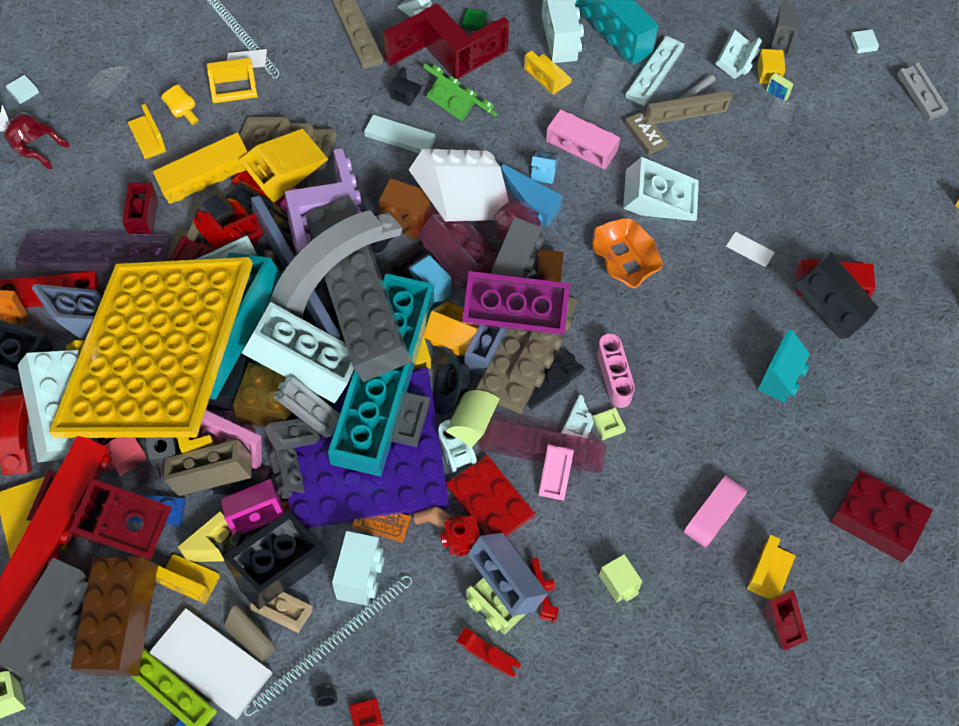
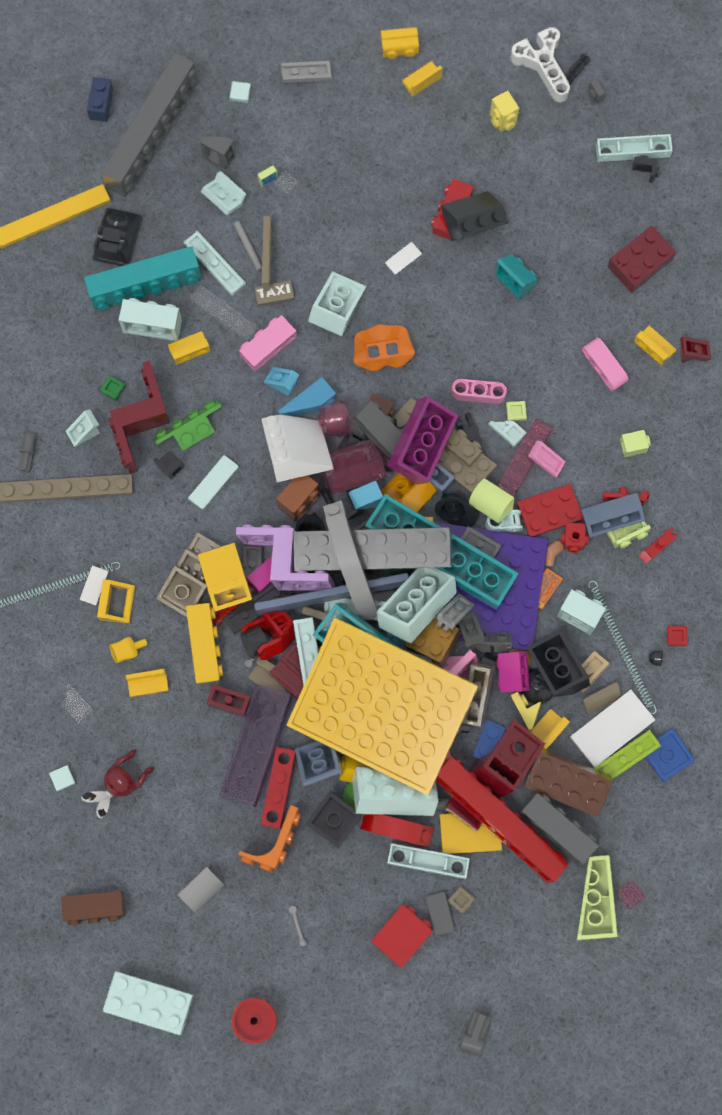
camera: 70 degrees left, 15 degrees up
(768, 63) = (244, 174): yellow brick -> none

